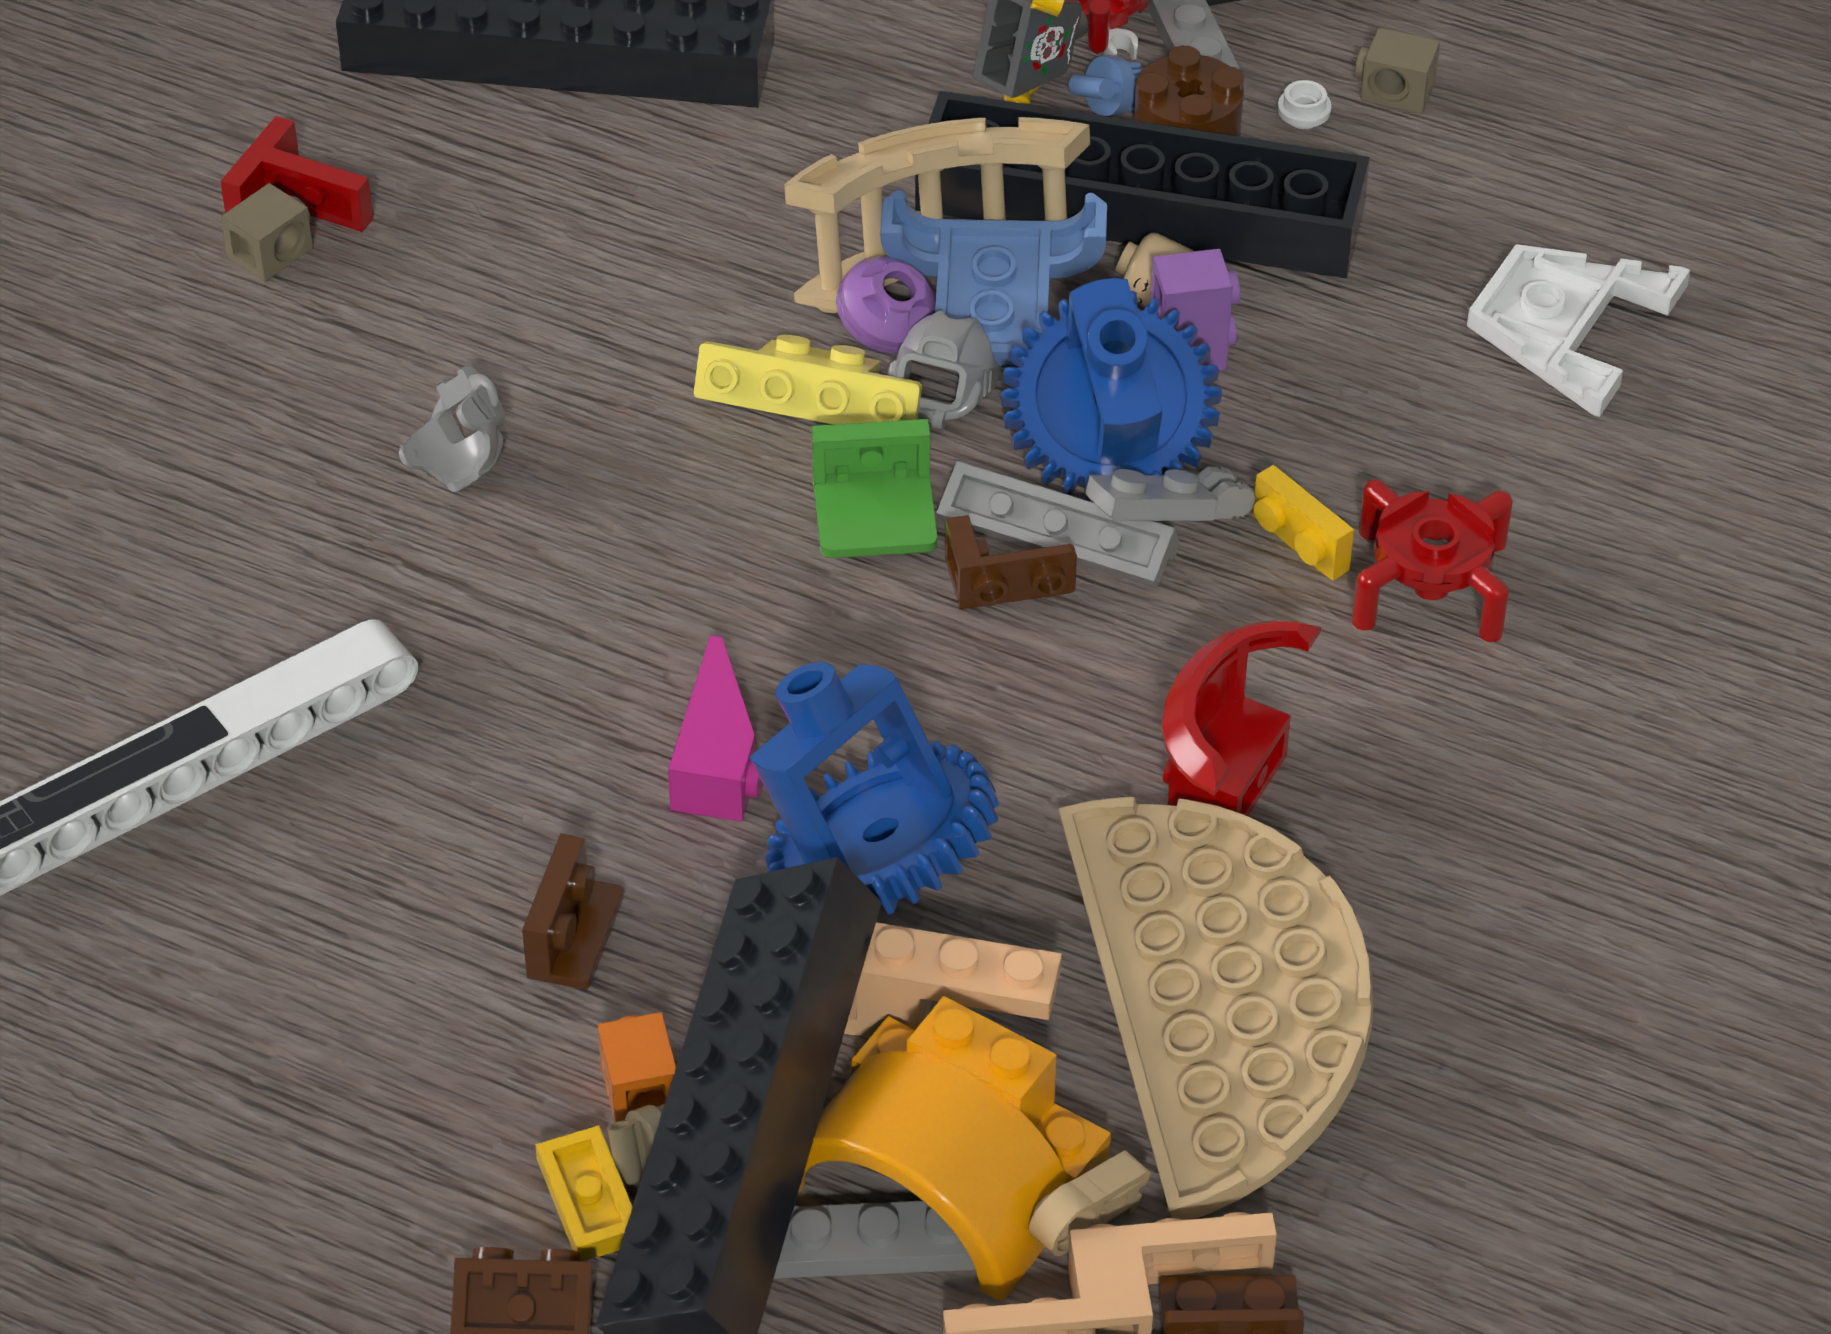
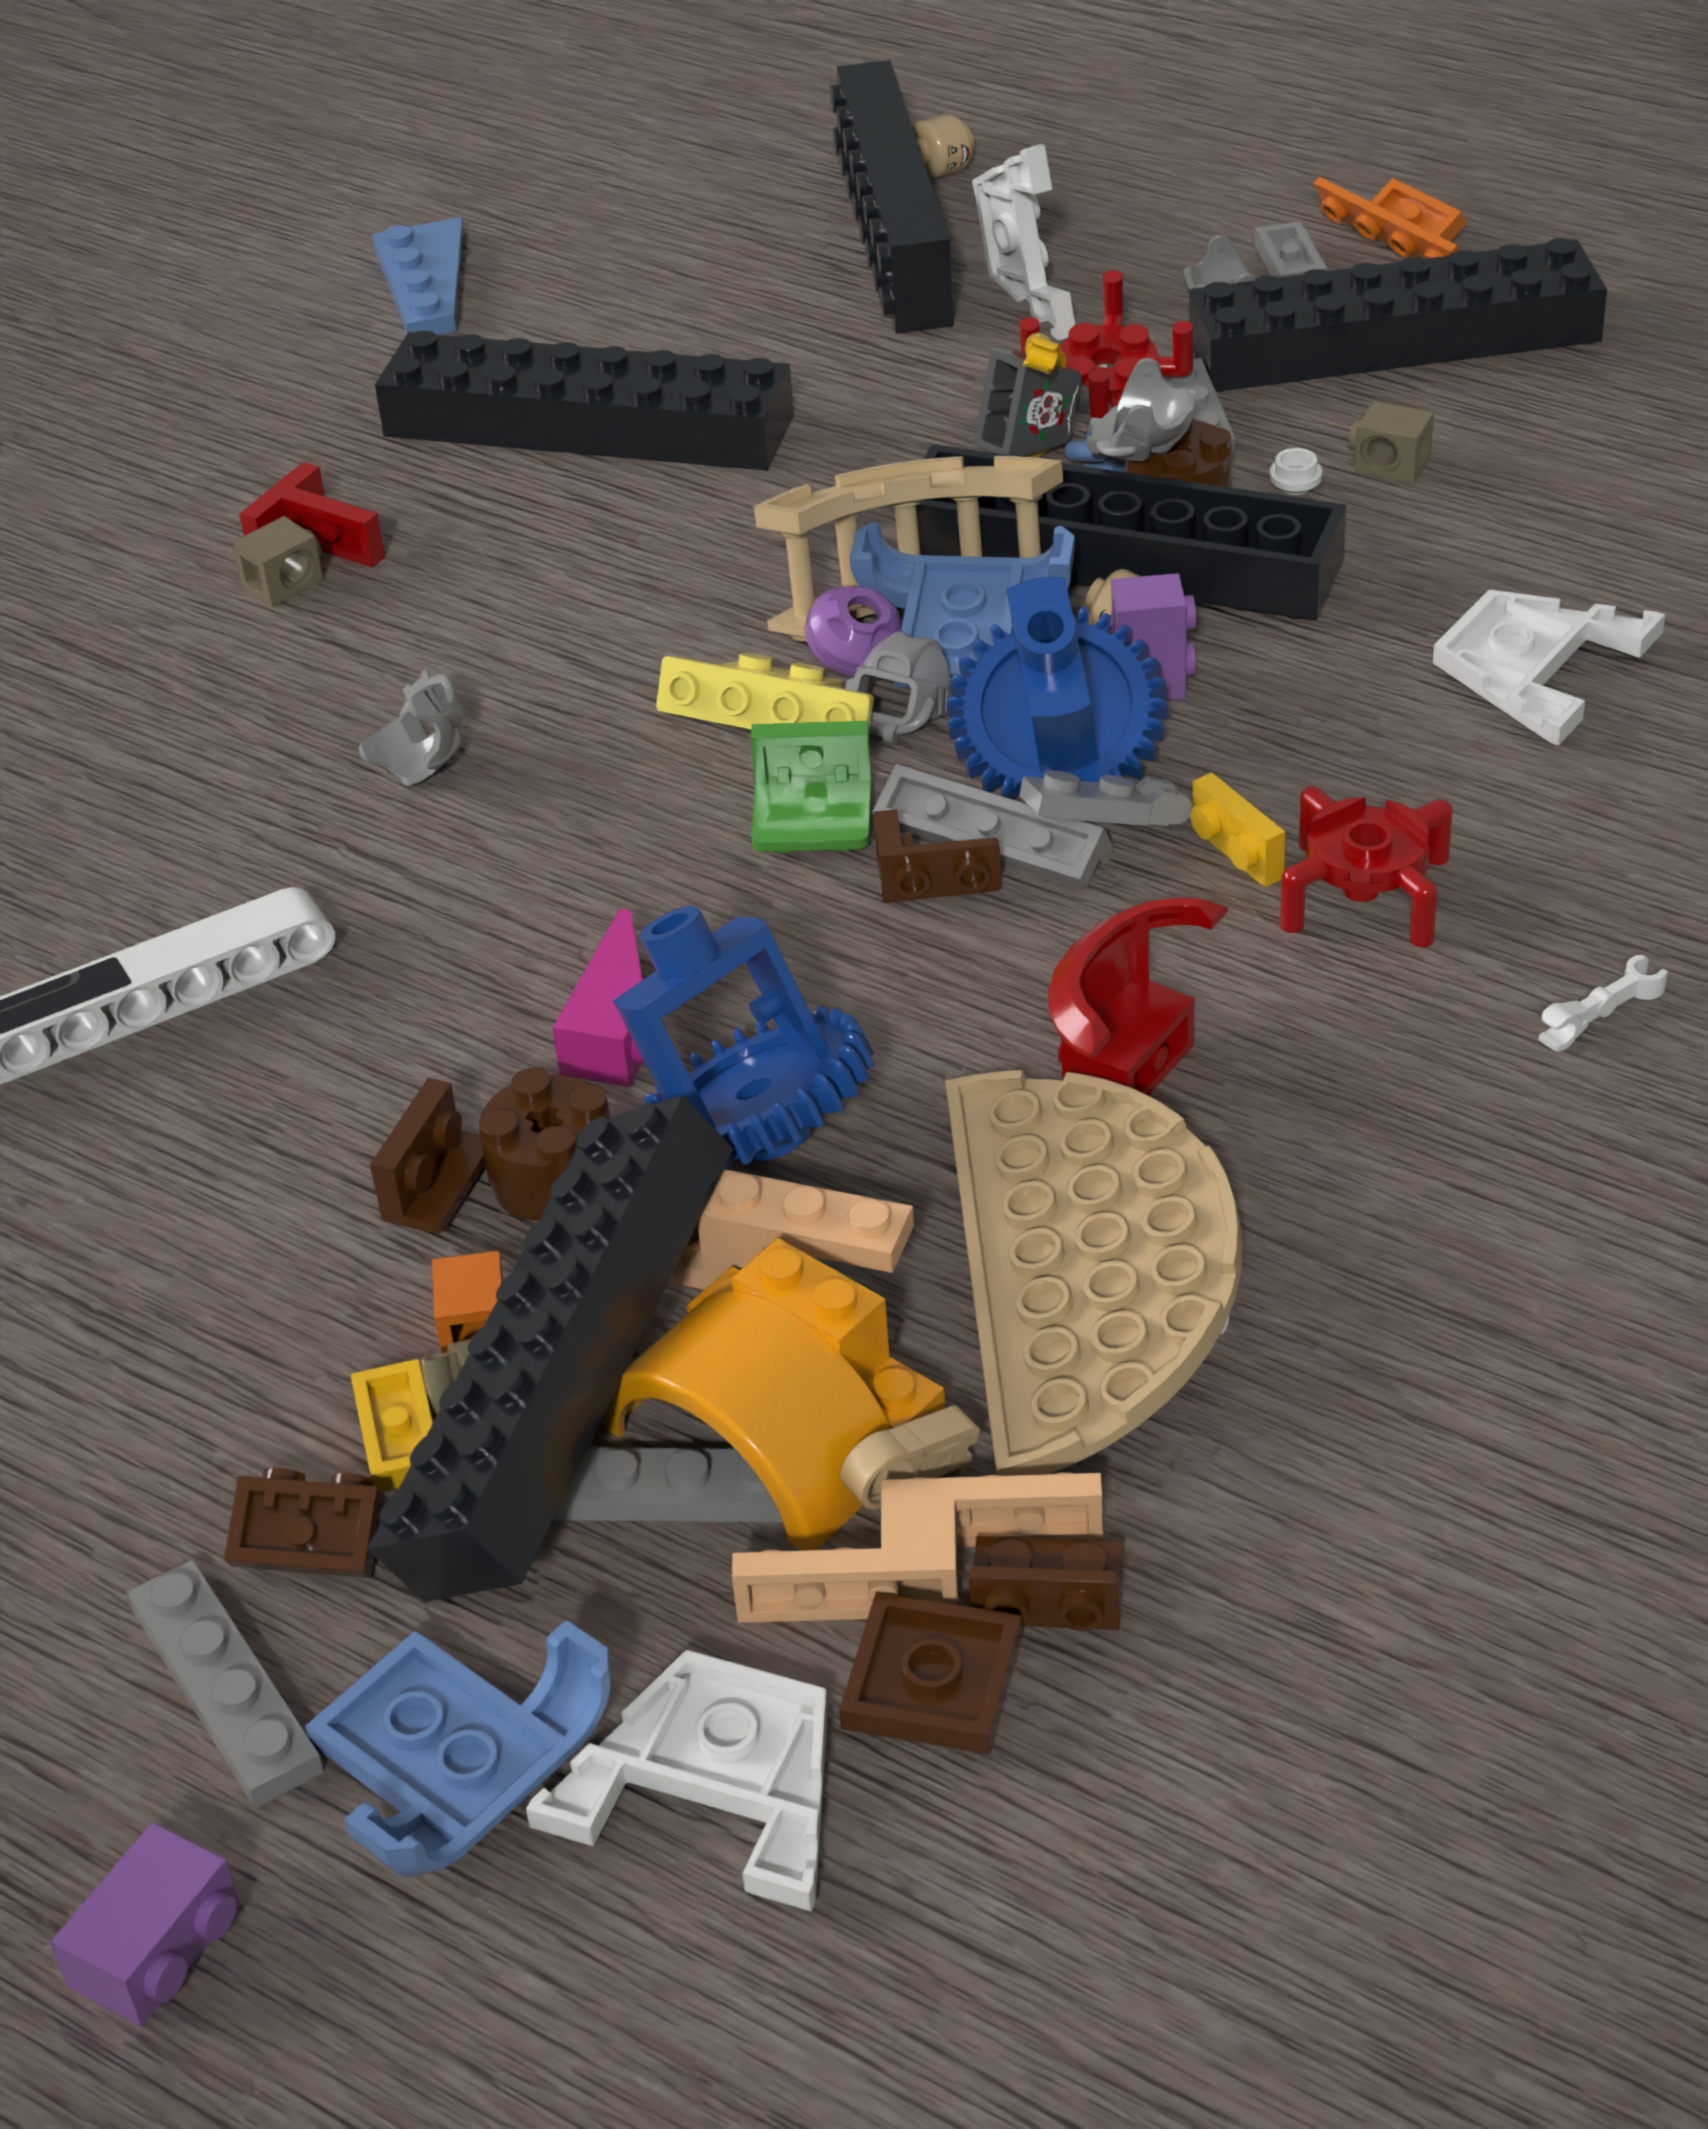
camera: 10 degrees right, 5 degrees down
(677, 891) = (533, 1134): none -> reddish brown brick
(1171, 57) = (1149, 414): none -> light grey helmet
(1643, 717) = (1573, 1017): none -> white piece

